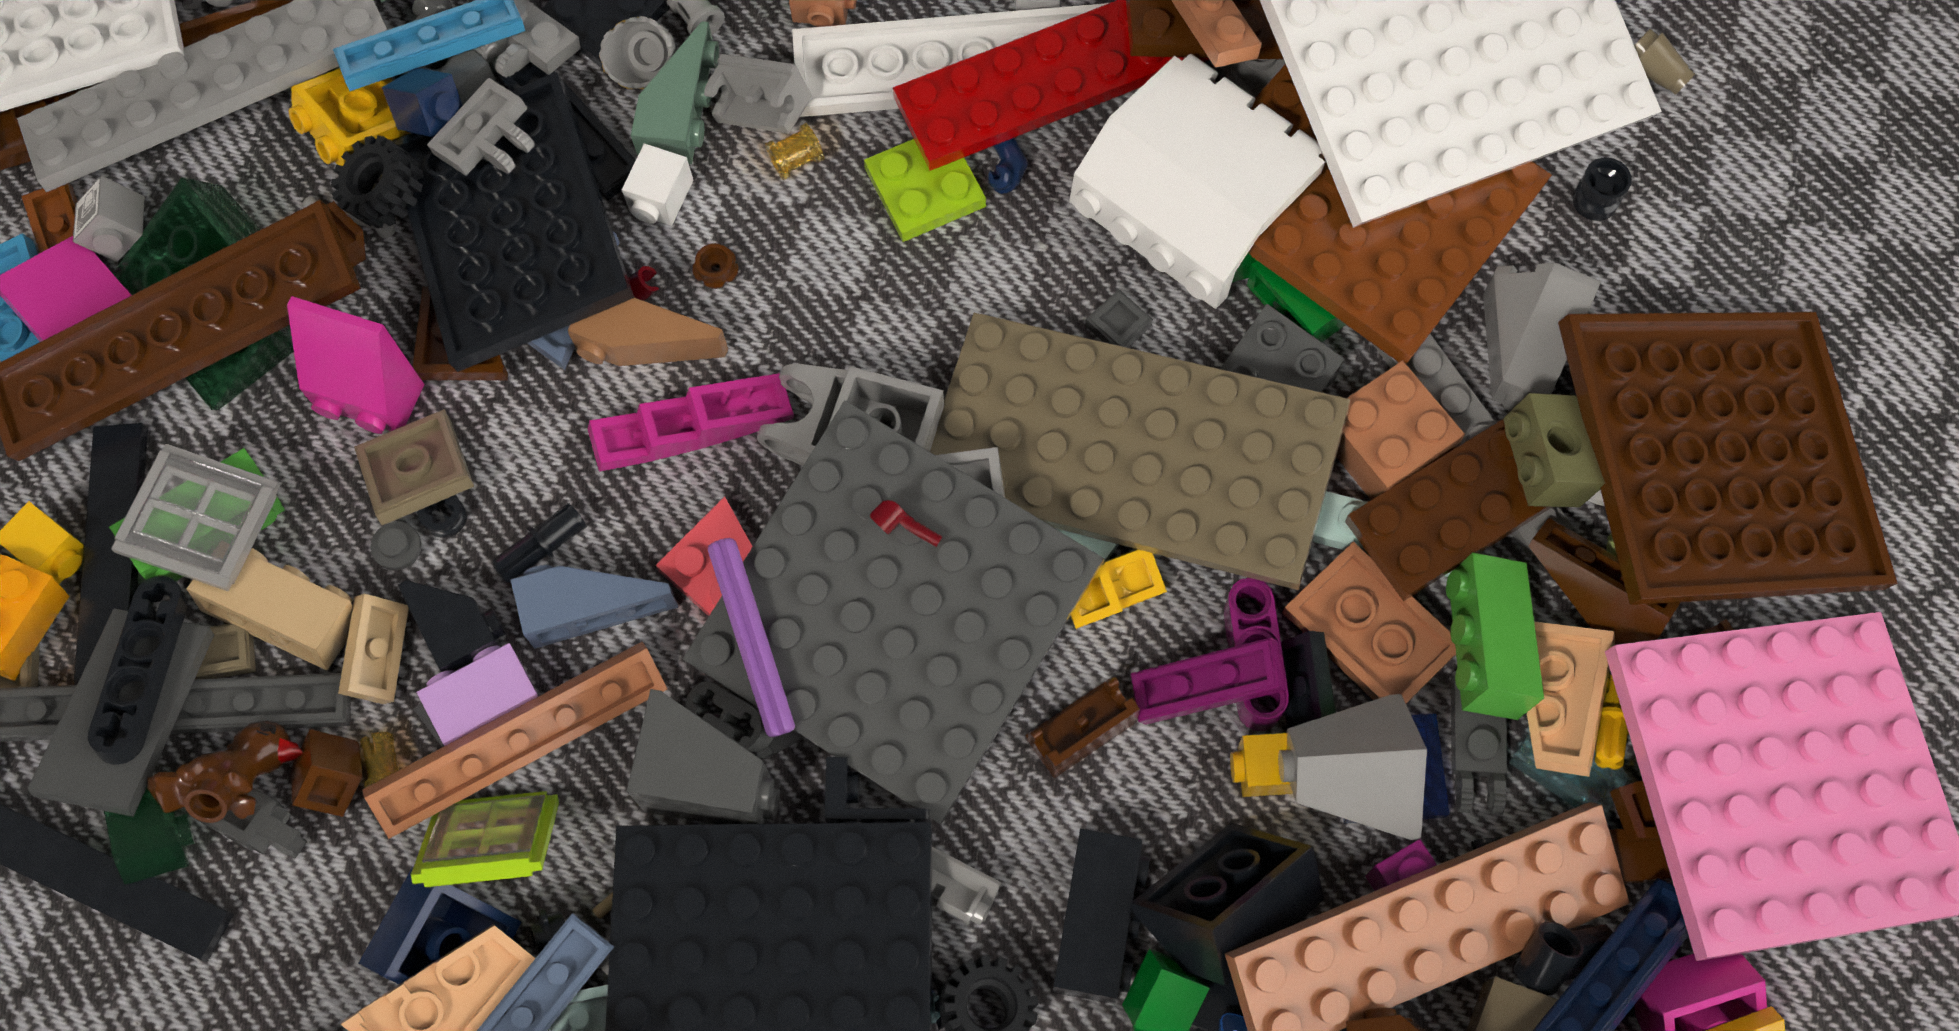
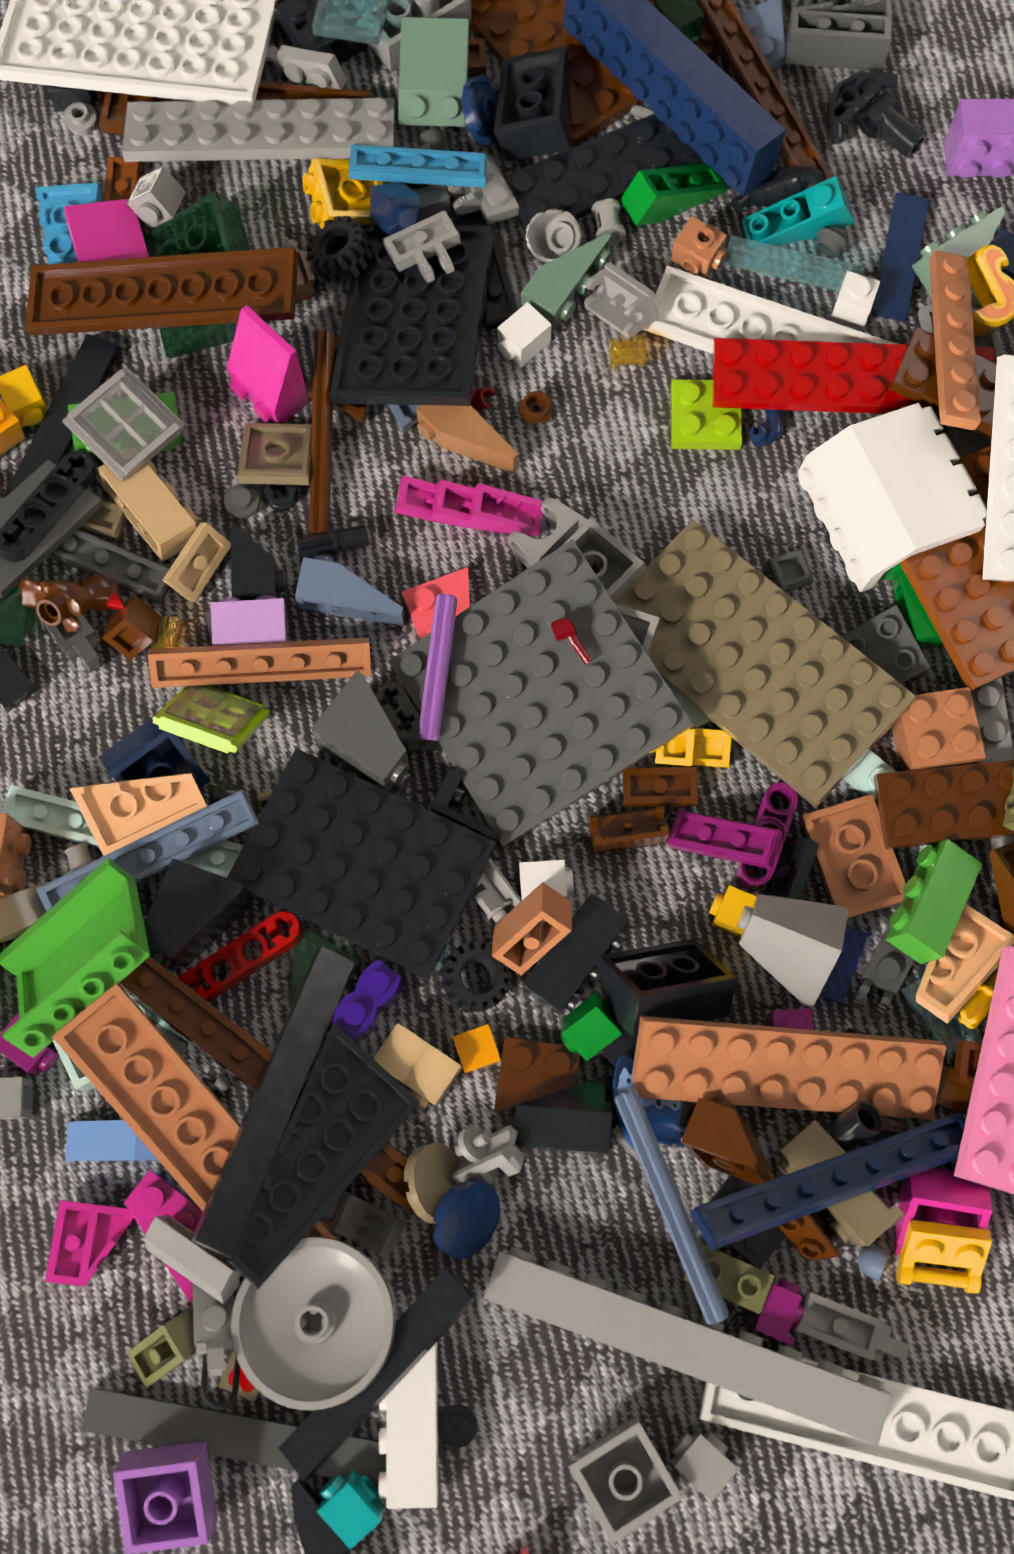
camera: 25 degrees right, 5 degrees up
(460, 415) = (321, 433): none -> reddish brown axle
(1014, 843) = (549, 872): none -> white brick
(1030, 910) = (532, 928): none -> nougat brick
(1096, 655) = (660, 787): none -> reddish brown plate

